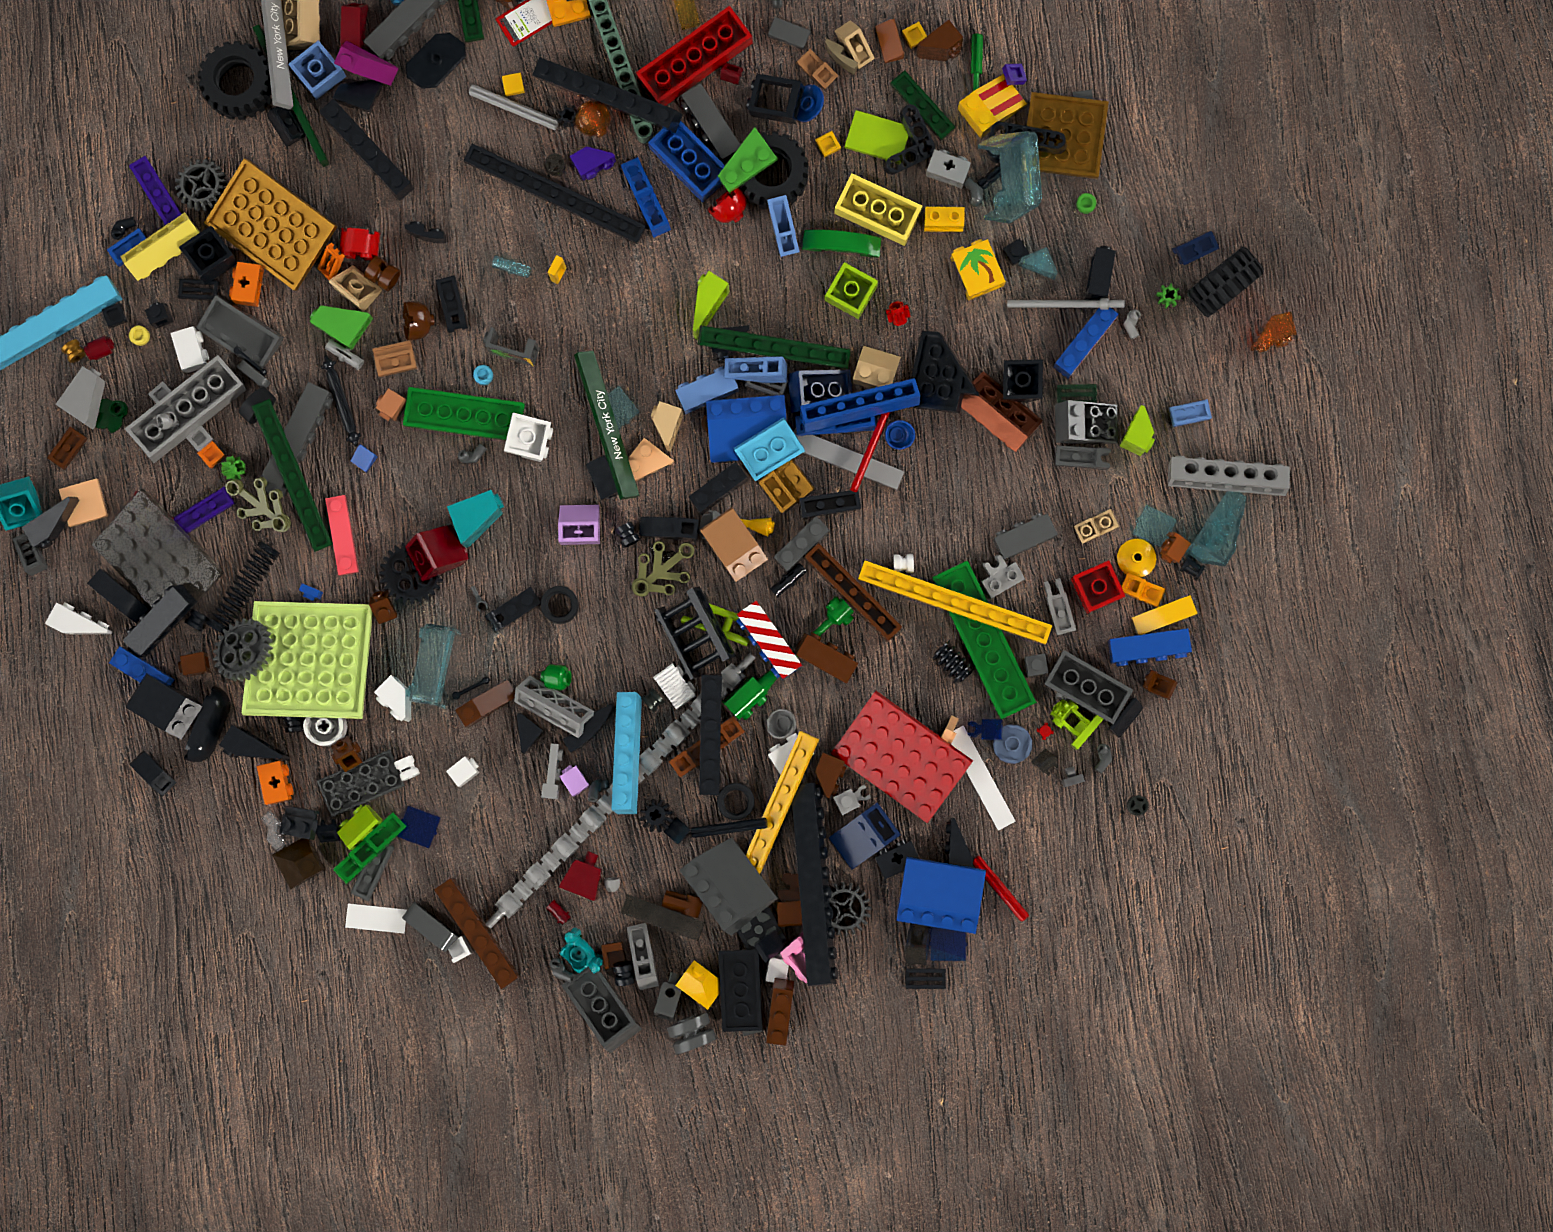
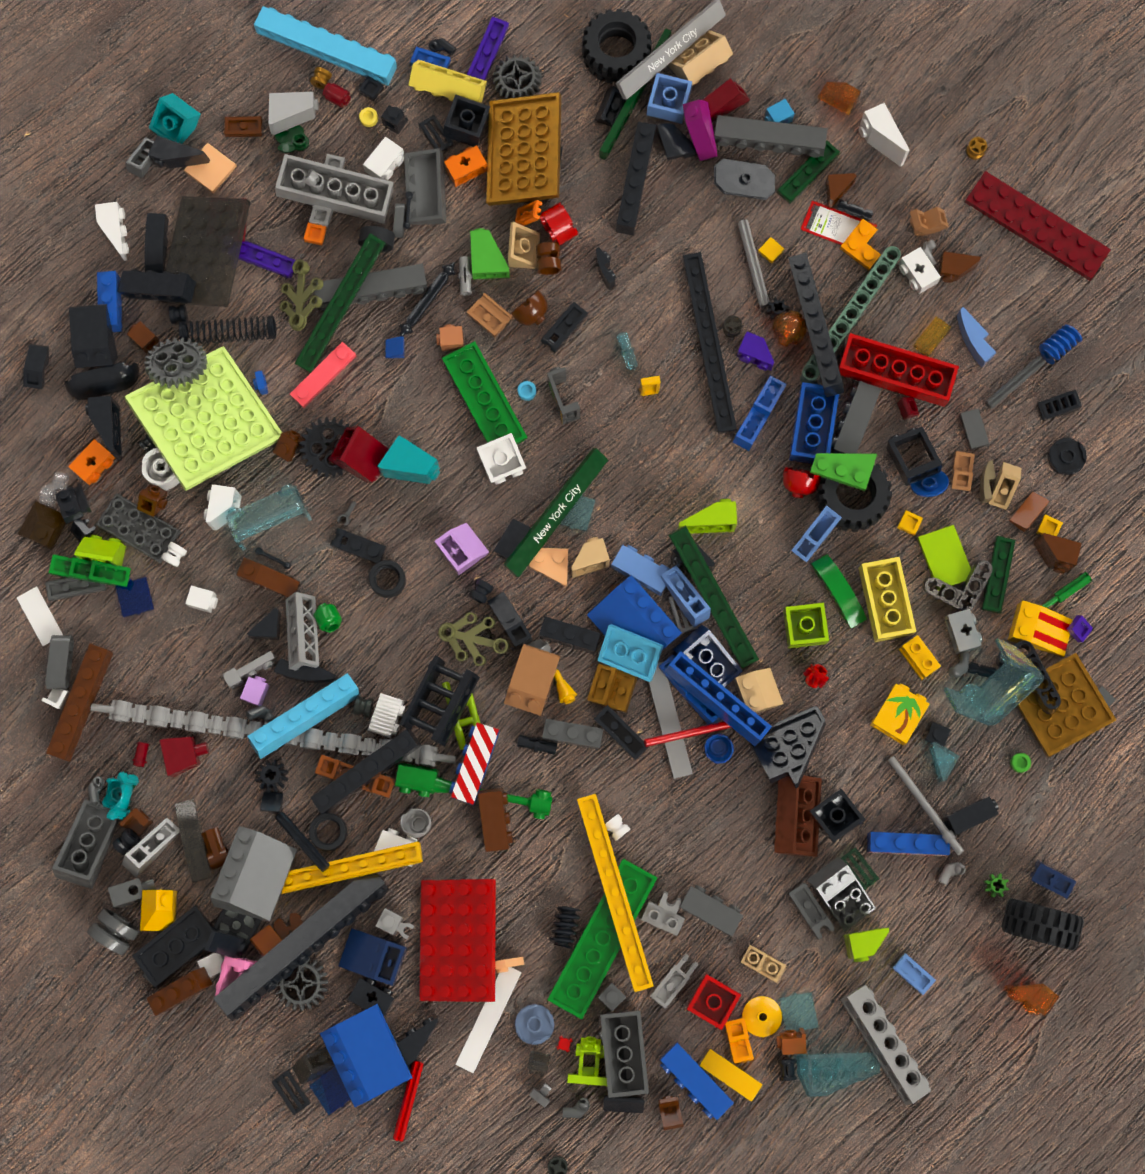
camera: 50 degrees right, 5 degrees down
(233, 468) = (315, 256): bright green gear -> none
(472, 456) = (456, 429): dark grey arm -> none
(612, 884) = (193, 780): light grey hinge -> none
(827, 772) = (403, 889): reddish brown slope -> none
(852, 592) = (563, 803): reddish brown brick -> none
(990, 729) = (532, 996): clear blue plate -> none

